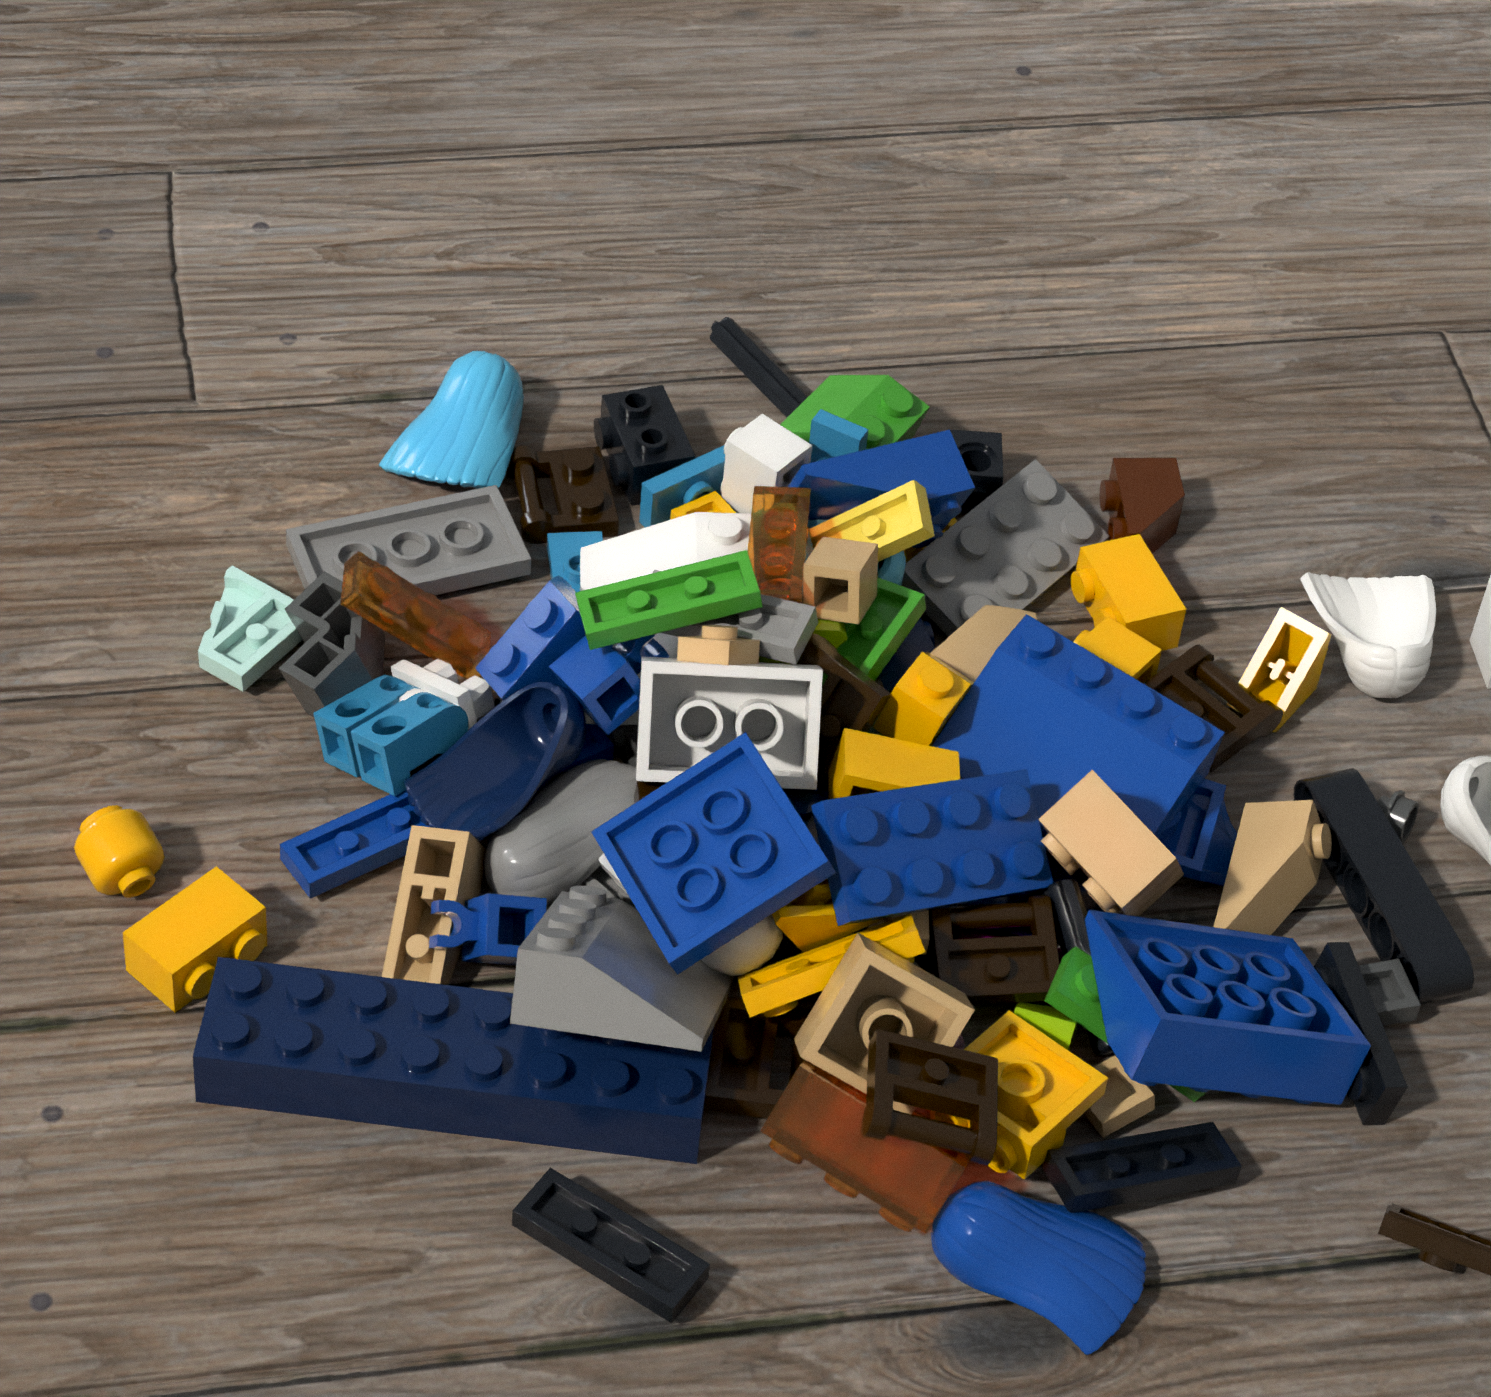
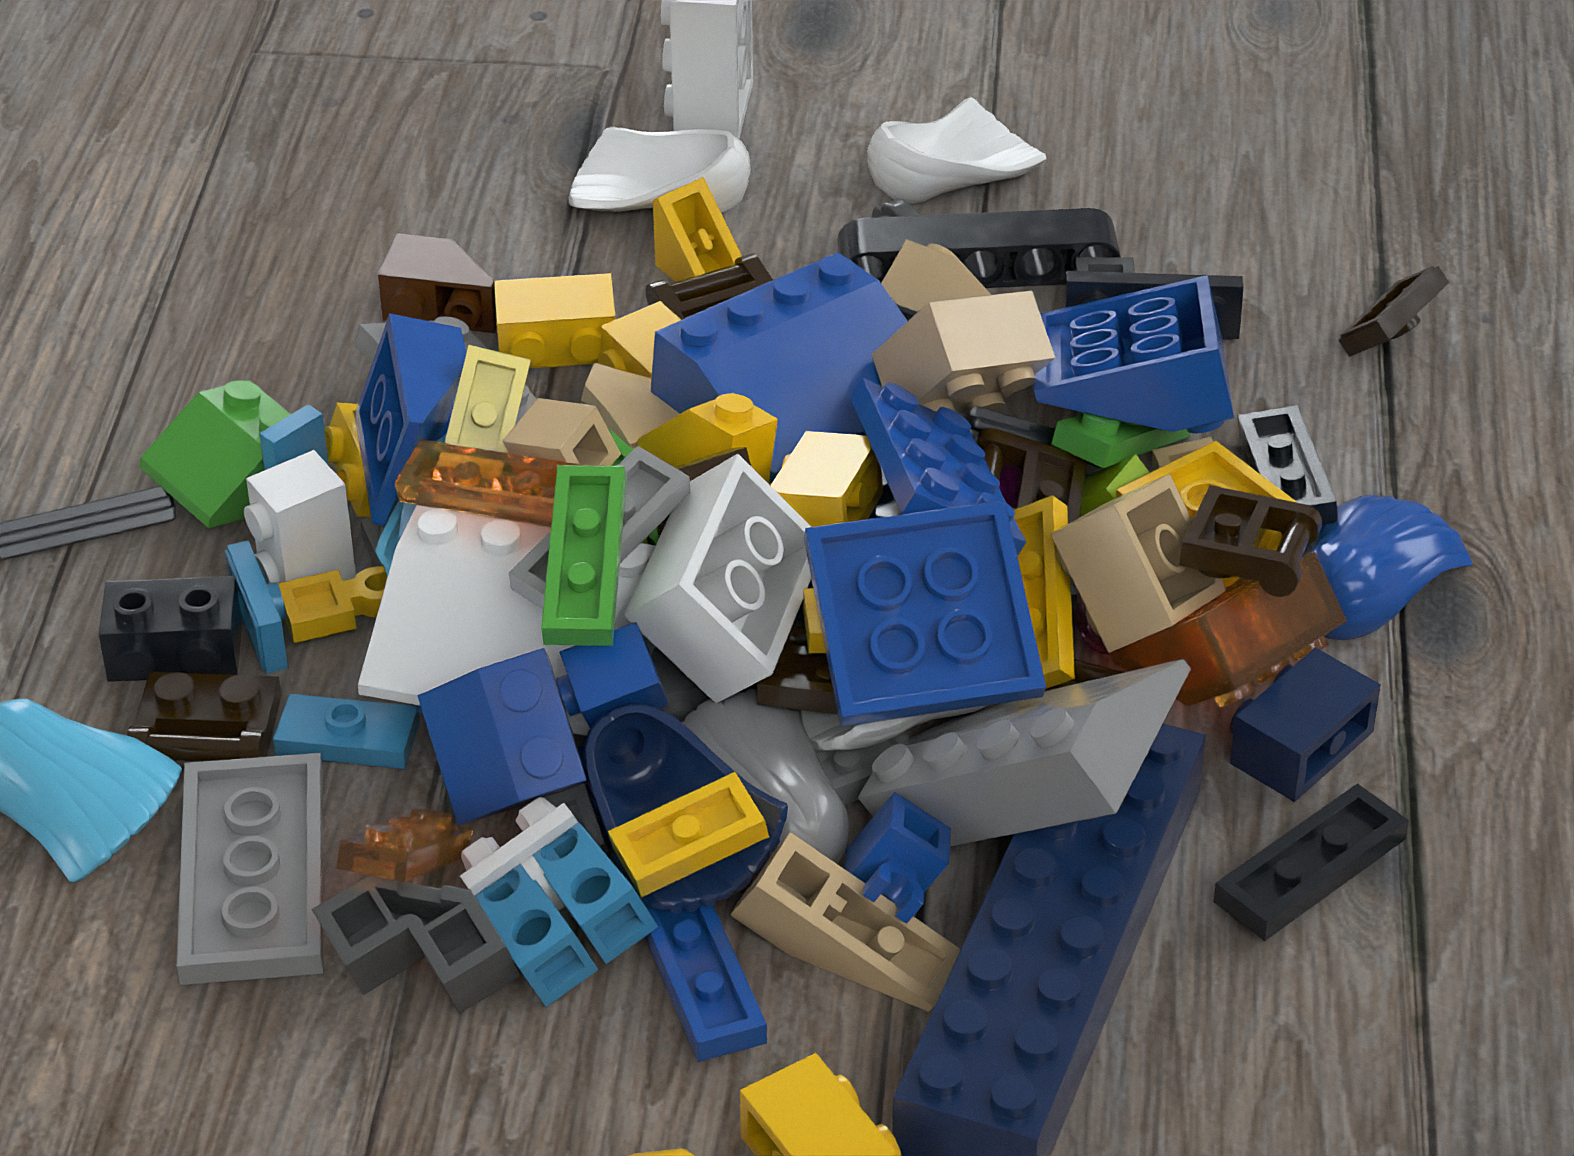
camera: 70 degrees left, 5 degrees down
(246, 631) = (321, 1032): light aqua wing -> none
(456, 772) = (688, 834): none -> yellow plate
(718, 646) = (664, 534): tan plate -> none
(782, 1218) = (1303, 723): none -> dark blue brick
(984, 462) = (325, 377): black brick -> none

